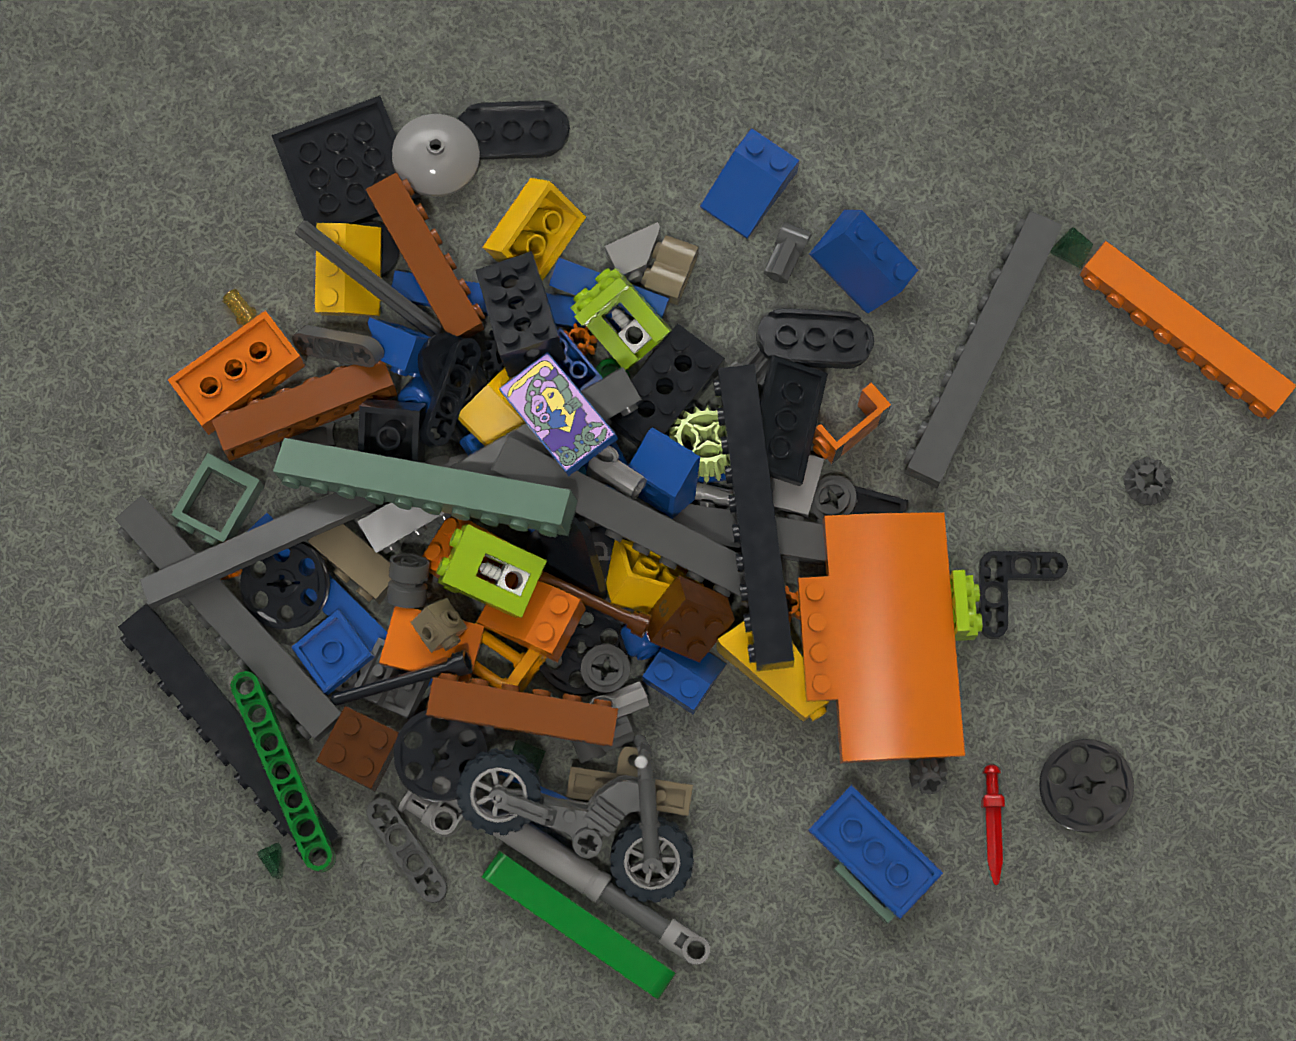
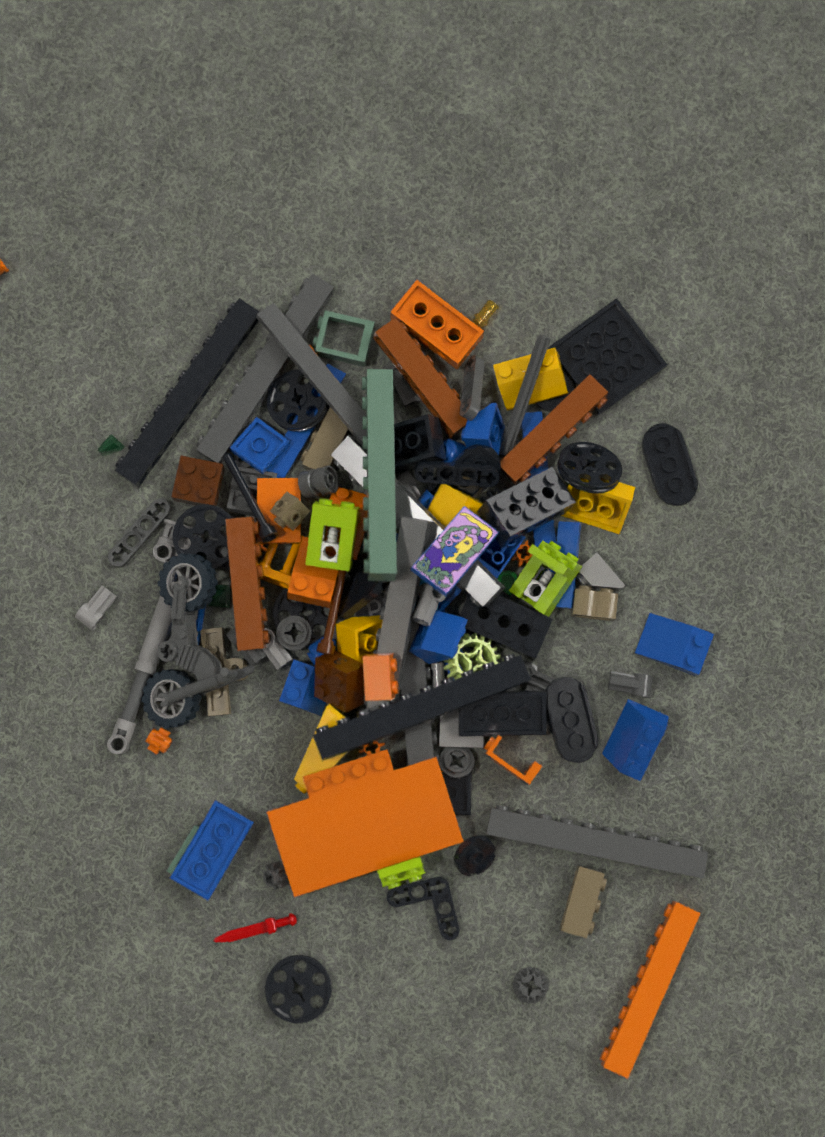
camera: 70 degrees right, 5 degrees up
(272, 760) = (171, 425): green beam -> none
(441, 170) = (621, 423): light grey dish -> none
(498, 223) = (589, 467): none -> black wedge
(499, 940) = (95, 609): none -> light grey piece
(578, 925) = (115, 660): green beam -> none
(699, 559) = (380, 677): none -> orange brick
(705, 891) = (159, 740): none -> orange gear
(964, 506) = (474, 855): none -> black tile
(1056, 385) = (583, 902): none -> dark tan brick
(1072, 248) = (691, 891): clear green slope -> none

